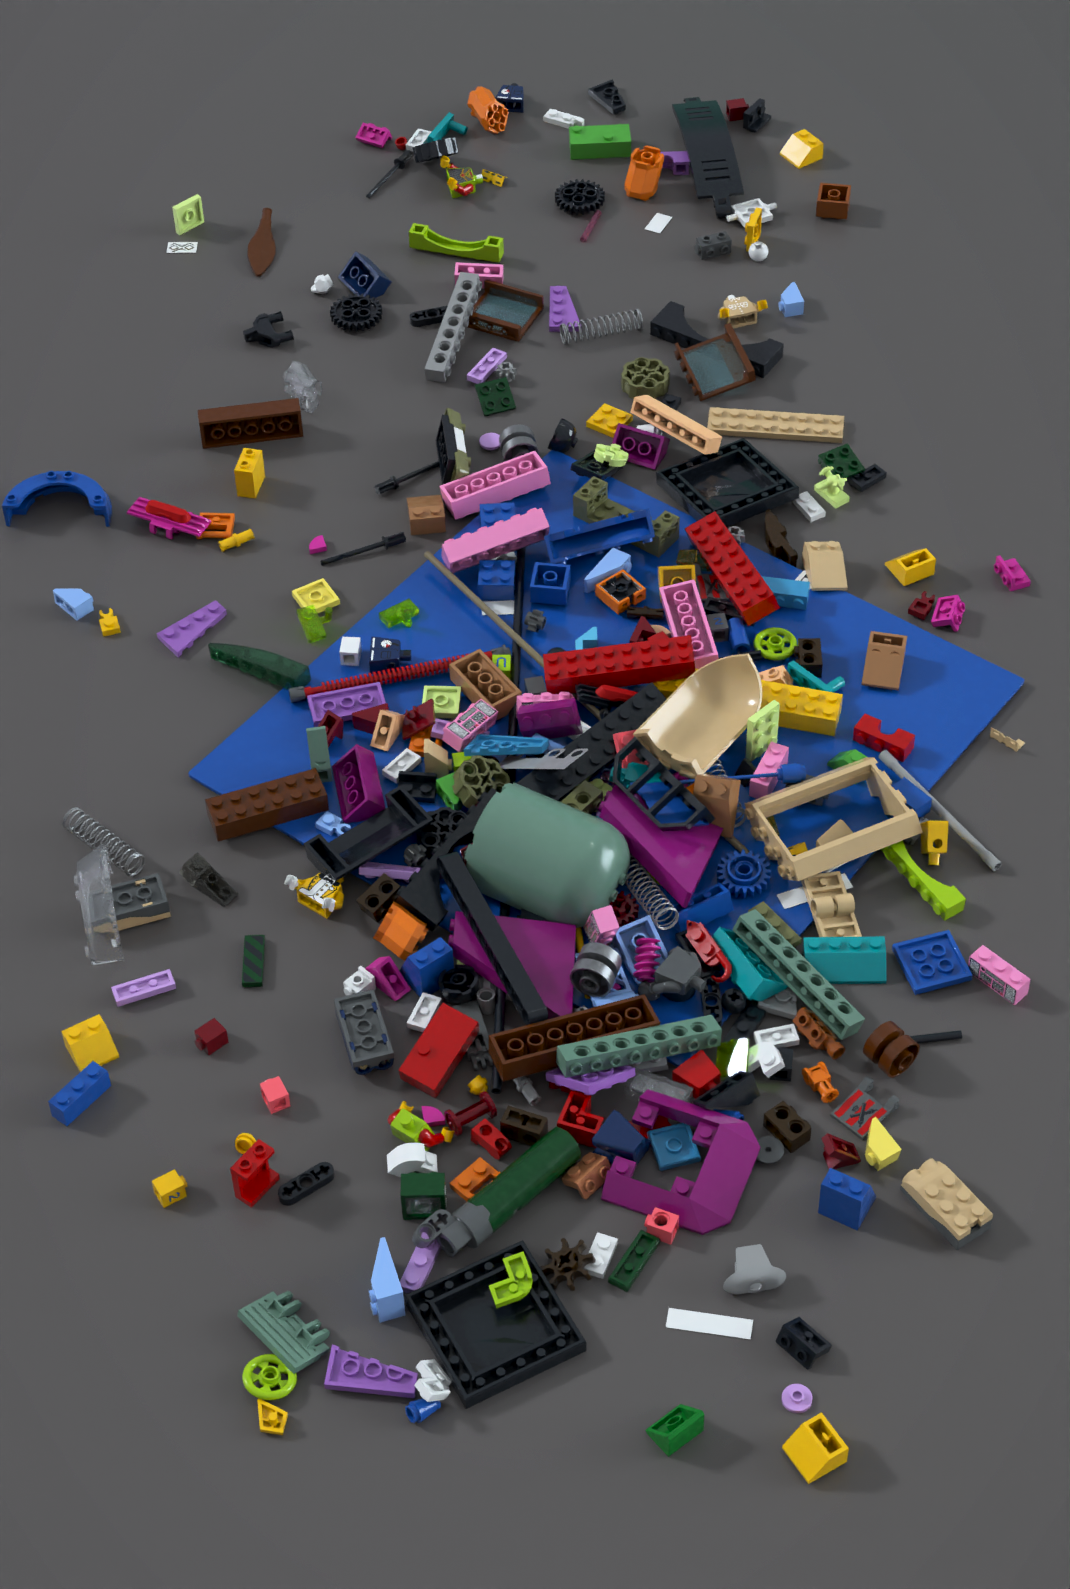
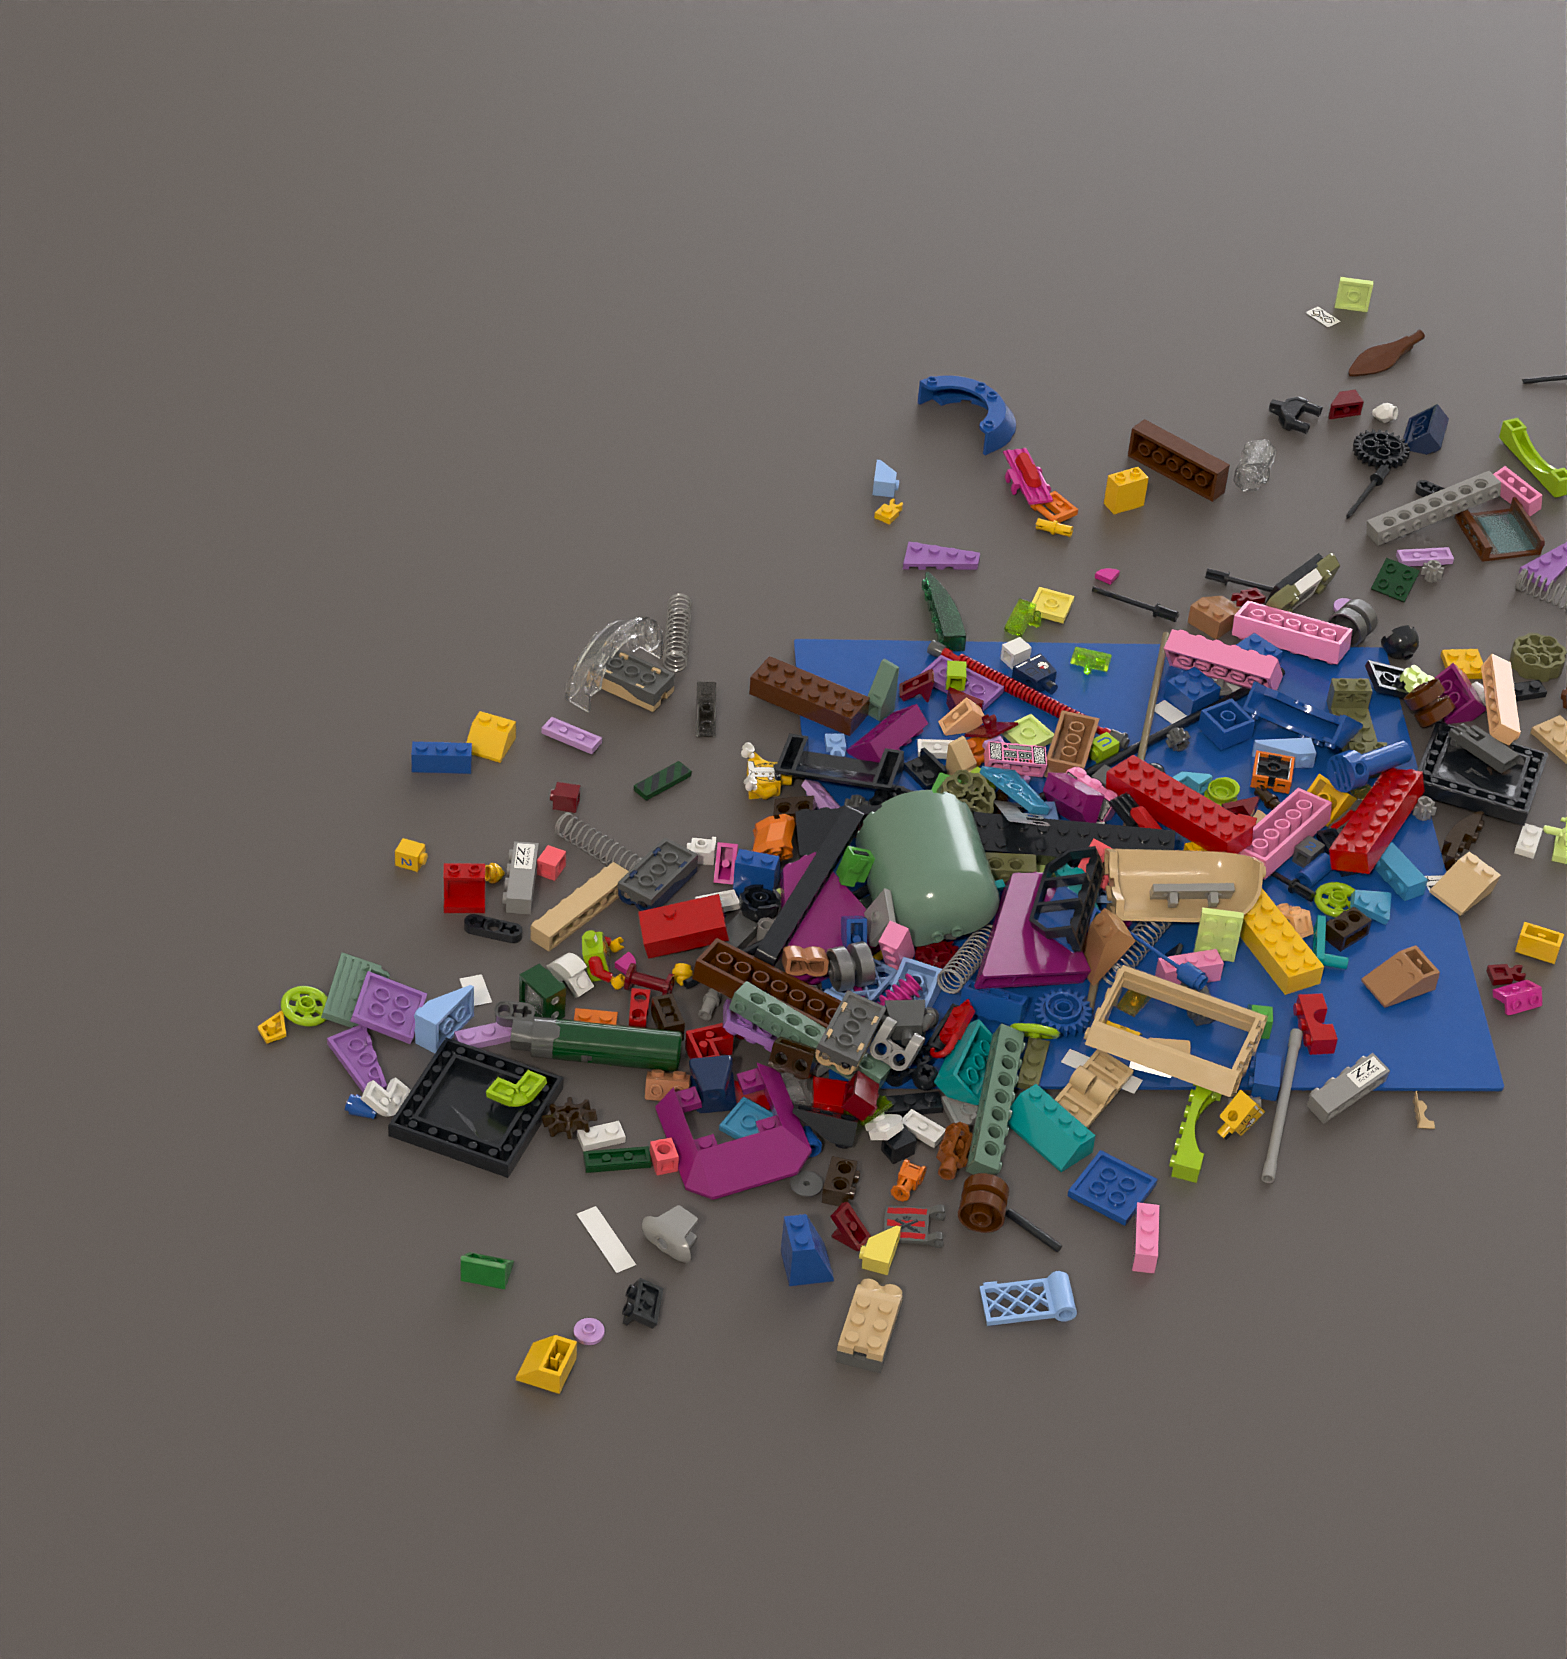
camera: 45 degrees right, 5 degrees down
(244, 1065) = (568, 826): none -> light grey piece
(272, 1126) = (521, 878): none -> light grey brick
(291, 297) = (1346, 404): none -> dark red slope
(333, 1315) = (388, 1007): none -> medium lavender plate
(343, 1106) = (578, 908): none -> tan brick
(344, 701) = (955, 675): none -> lime brick
(359, 1241) = (481, 994): none -> white sticker
(382, 336) = (1376, 479): none -> black piece
(426, 483) = (1252, 595): none -> dark red plate
(499, 895) = (855, 866): none -> bright green piece
(562, 944) = (853, 929): none -> blue slope
(564, 994) = (802, 961): none -> nougat brick
(567, 916) = (878, 916): none -> light grey plate
(610, 632) = (1222, 790): none -> lime piece
(641, 462) = (1428, 701): none -> reddish brown wheel
(652, 1066) = (794, 1052): none -> dark brown brick
(673, 1015) = (849, 1033): none -> dark grey piece
(684, 544) = (1351, 769): none -> blue piece
(705, 727) = (1208, 891): none -> light grey hinge
(711, 464) = (1485, 747): none -> dark grey hinge
(715, 991) = (893, 1049): none -> light grey piece
(726, 1053) = (860, 1096): none -> dark red brick
(753, 902) = (1036, 1030): none -> lime plate
(800, 627) = (1372, 904): none -> dark azure wing
(958, 762) = (1348, 1087): none -> light grey brick
(1013, 1068) = (1056, 1291): none -> light blue piece

